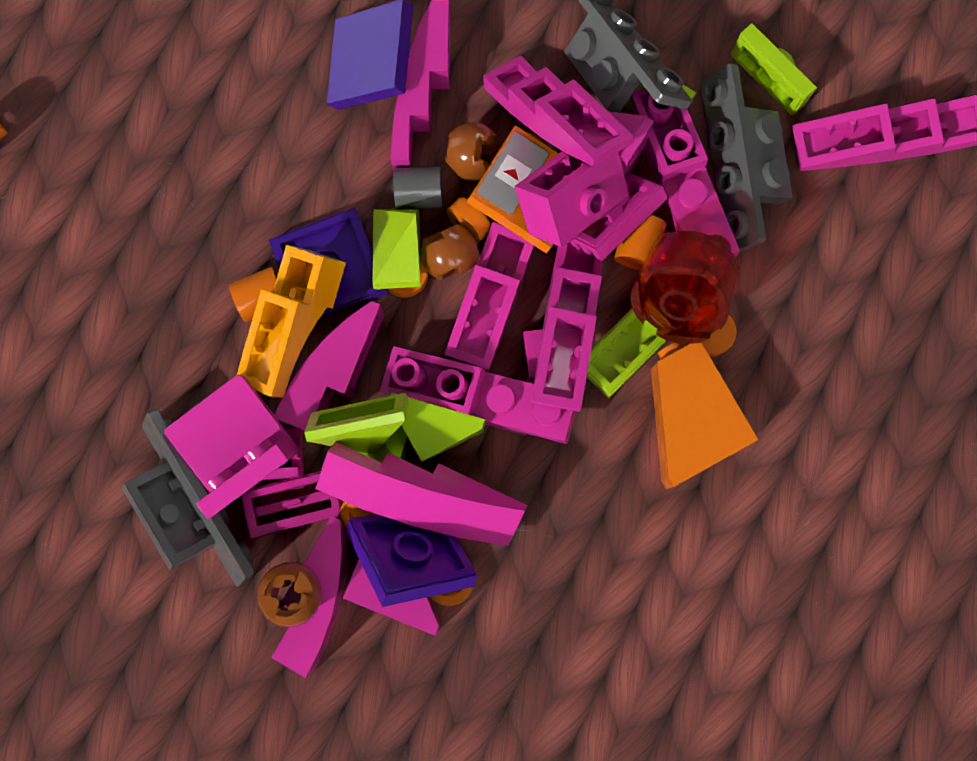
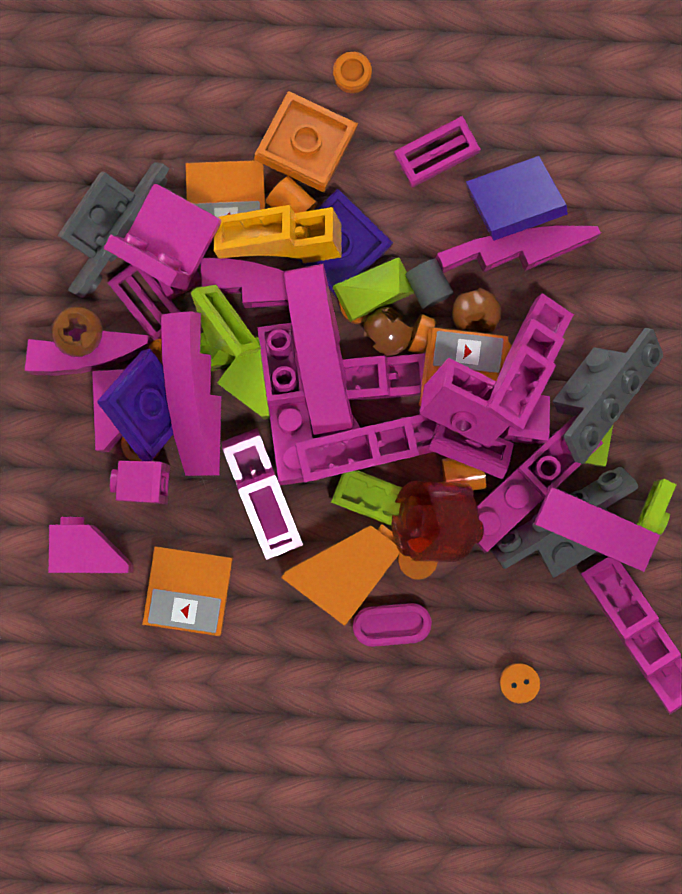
camera: 65 degrees right, 5 degrees up
(151, 170) = (352, 72): none -> orange tile
(200, 250) = (305, 141): none -> orange tile
(206, 356) = (226, 186): none -> orange tile
(281, 157) = (408, 167): none -> dark pink tile
(436, 330) = (318, 349): none -> dark pink slope
(495, 601) = (141, 482): none -> dark pink slope
(542, 702) = (83, 549): none -> dark pink slope
(565, 469) = (261, 493): none -> slope
(639, 602) = (187, 591): none -> orange tile
(766, 121) = (596, 529): none -> dark pink slope
(772, 390) = (392, 624): none -> dark pink tile
(891, 283) = (519, 683): none -> orange tile

